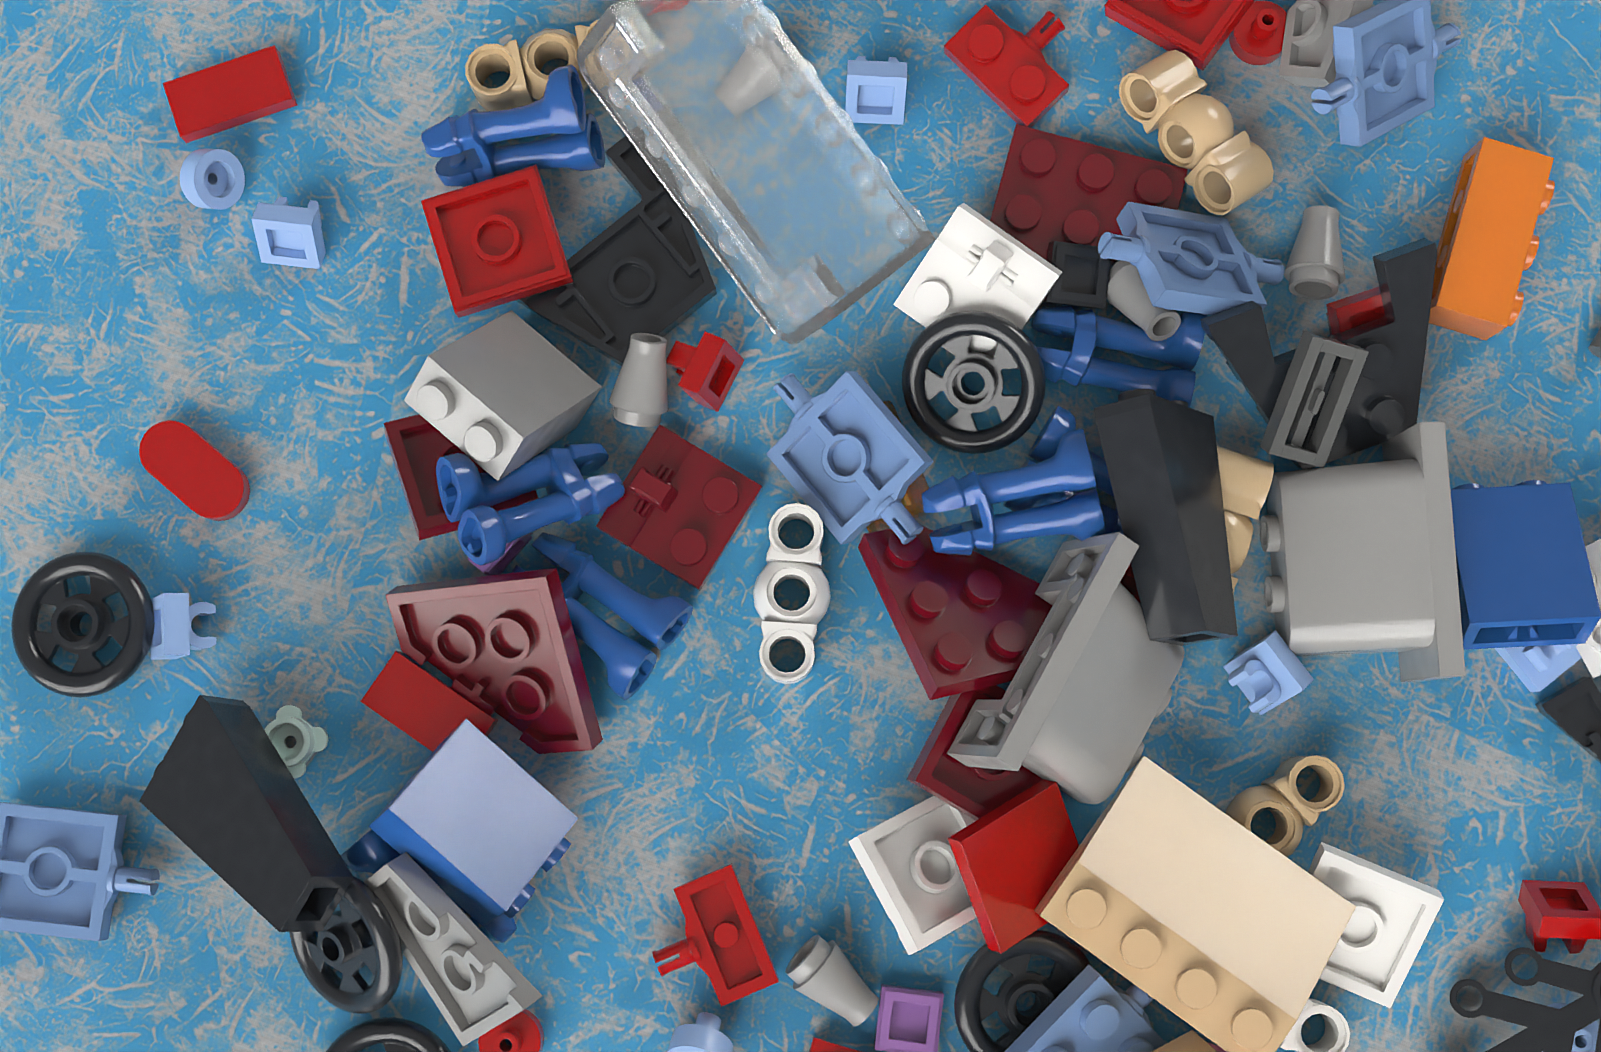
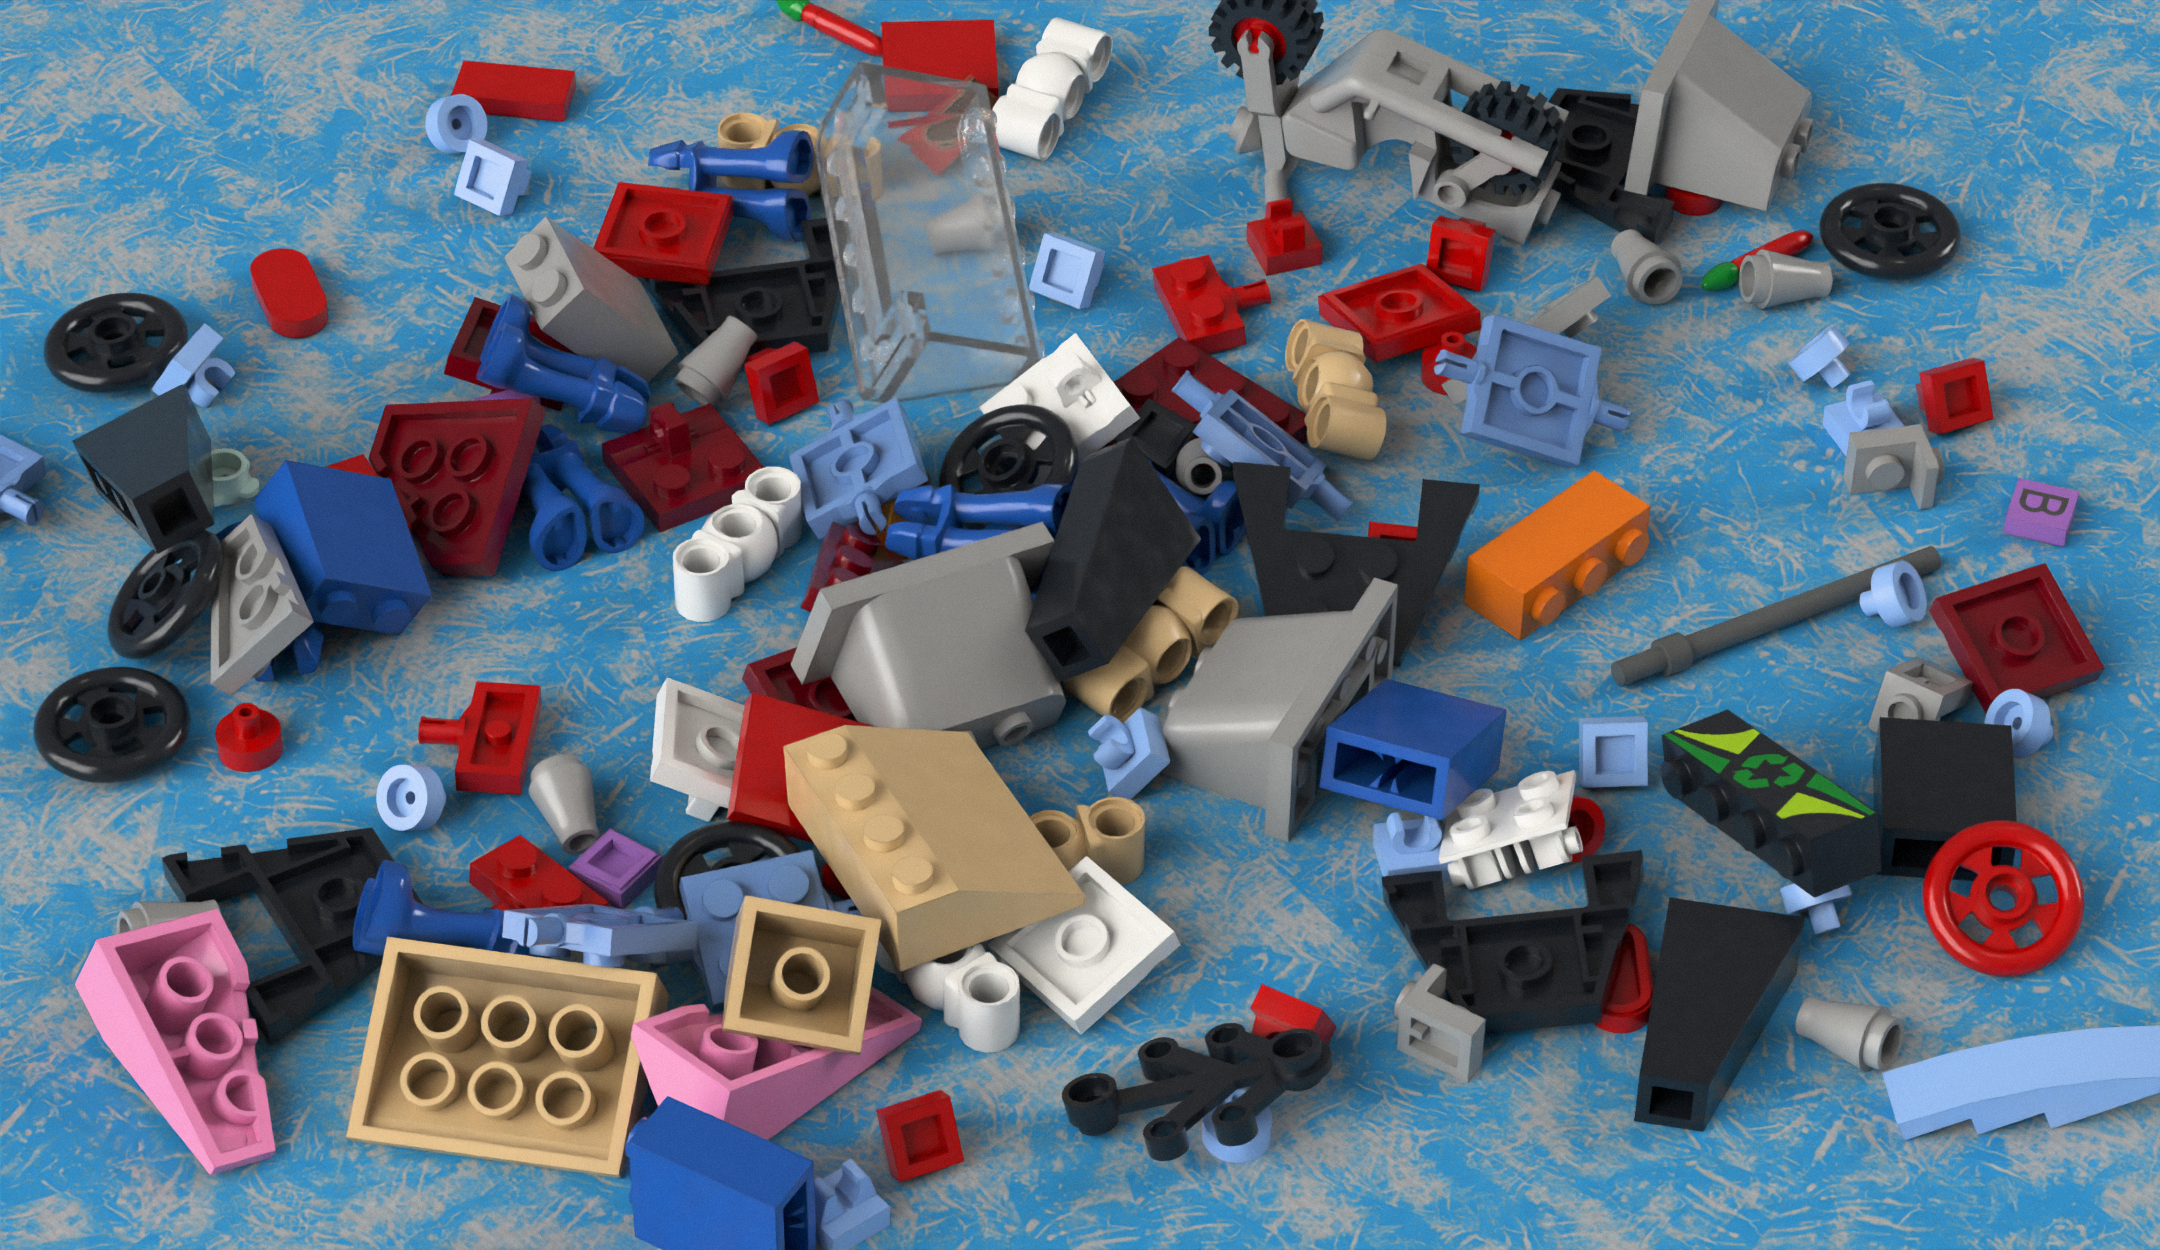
camera: 25 degrees right, 40 degrees down
(1303, 395) = (1266, 598): dark grey tile -> none
(1317, 256) = (1389, 505): light grey cone -> none

